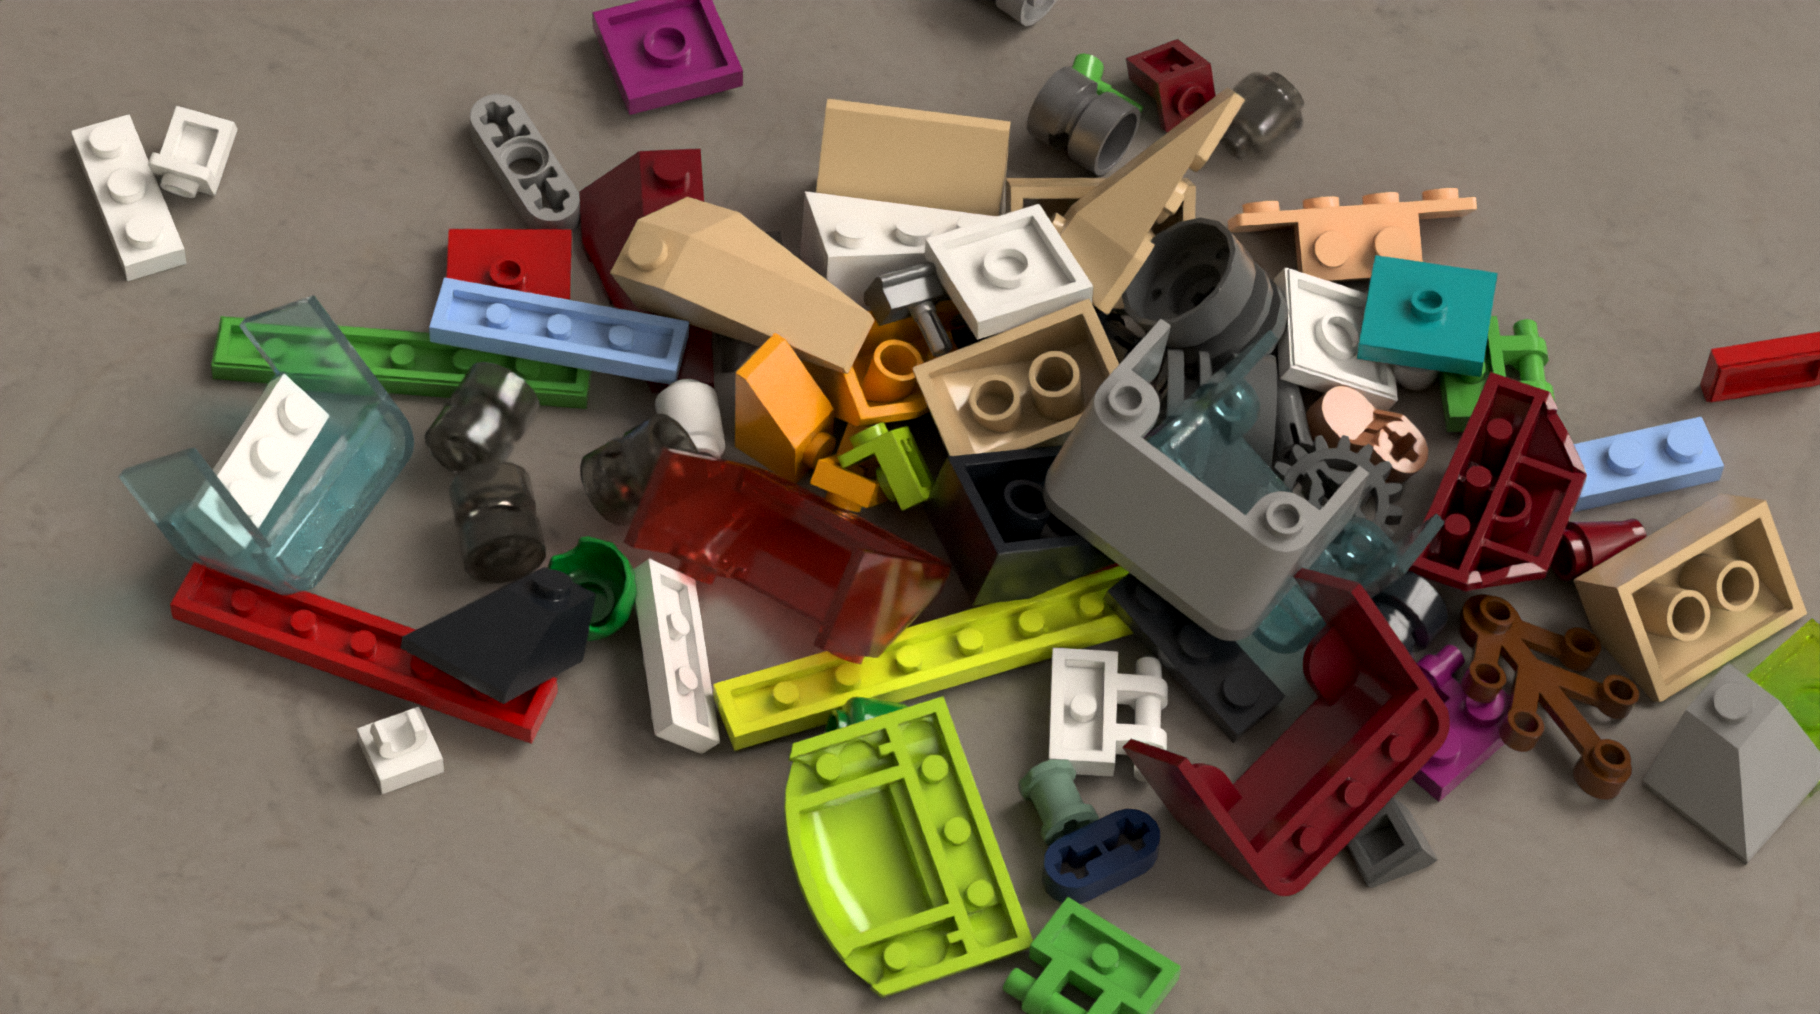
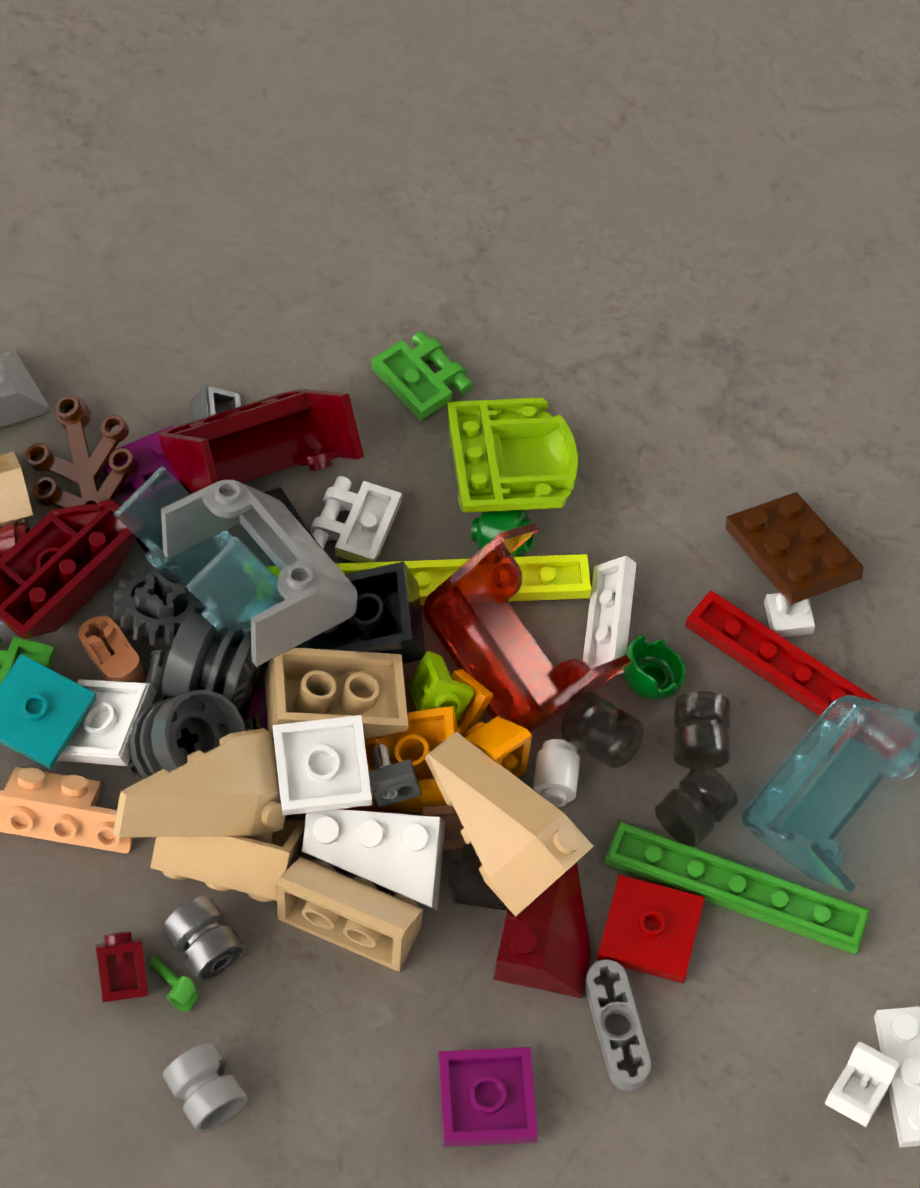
camera: 165 degrees left, 5 degrees up
(270, 446) = (855, 796): white plate -> none
(413, 822) = (794, 548): none -> reddish brown plate
(510, 635) = (720, 641): black slope -> none
(559, 331) = (643, 857): light blue plate -> none
(1056, 799) = (404, 471): sand green bush -> none
(1098, 851) = (389, 443): dark blue beam -> none
(1266, 118) = (73, 914): clear smoke head -> none

